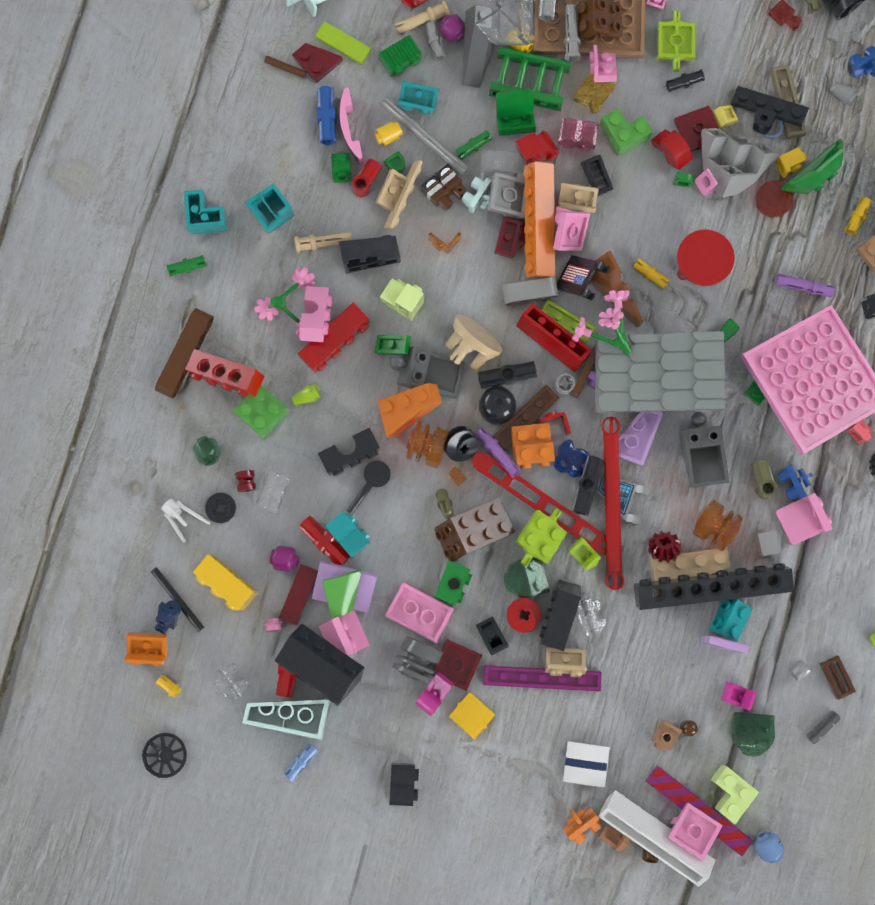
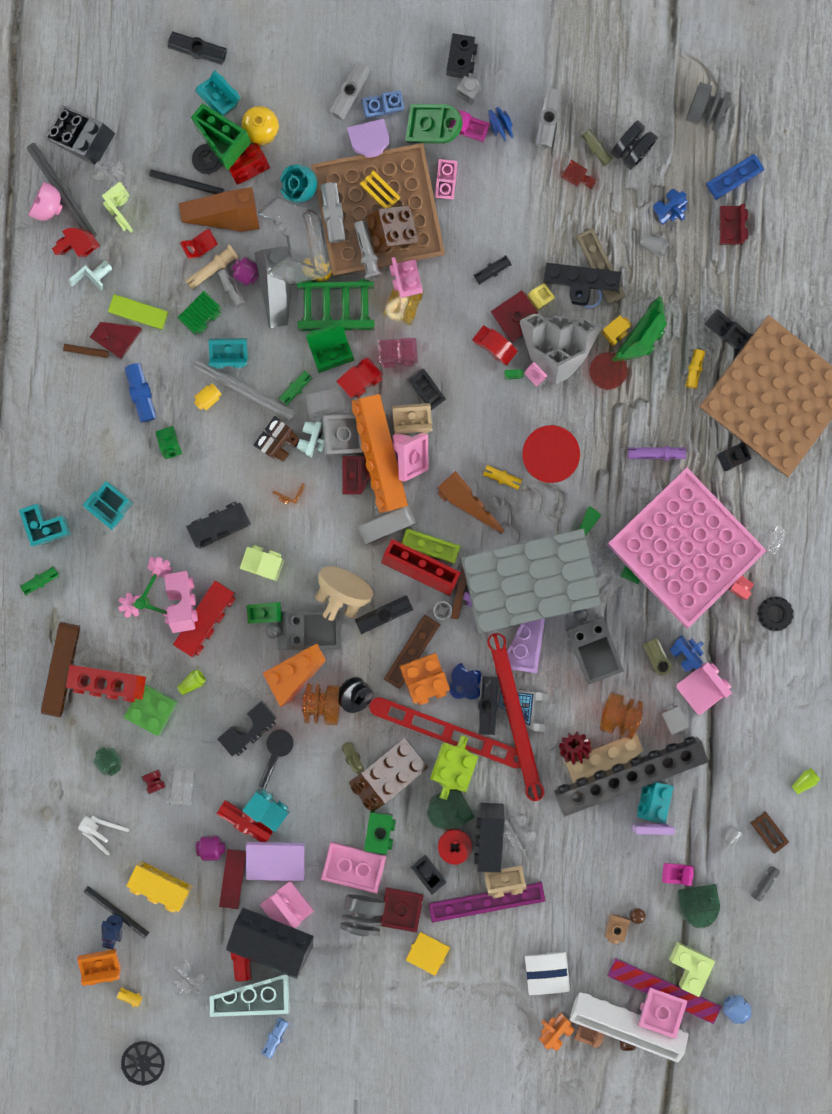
camera: 15 degrees left, 5 degrees up
(212, 505) = (135, 823): black gear -> none
(273, 625) = (215, 914): bright pink plate -> none
(301, 246) = (160, 529): tan pin -> none
(341, 592) = (274, 868): bright green slope -> none
(353, 146) = (158, 378): bright pink slope -> none
(367, 177) = (196, 446): red piece -> none
(395, 162) = (222, 424): green tile -> none
(395, 192) = (229, 456): tan bracket -> none
(402, 784) = (377, 1036): black brick -> none
(434, 694) = (386, 943): dark pink plate -> none
(457, 476) = (359, 726): clear orange piece -> none
(492, 446) = (395, 696): medium lavender pin -> none
(497, 405) = (381, 646): black cylinder -> none
(553, 416) = (438, 644): red bracket -> none
(578, 275) = (430, 499): black flag -> none
(584, 554) = (500, 773): lime bracket -> none
(612, 319) = (470, 546): bright pink plant -> none
(623, 135) = (443, 344): bright green brick -> none
(676, 41) = (474, 230): lime plate -> none

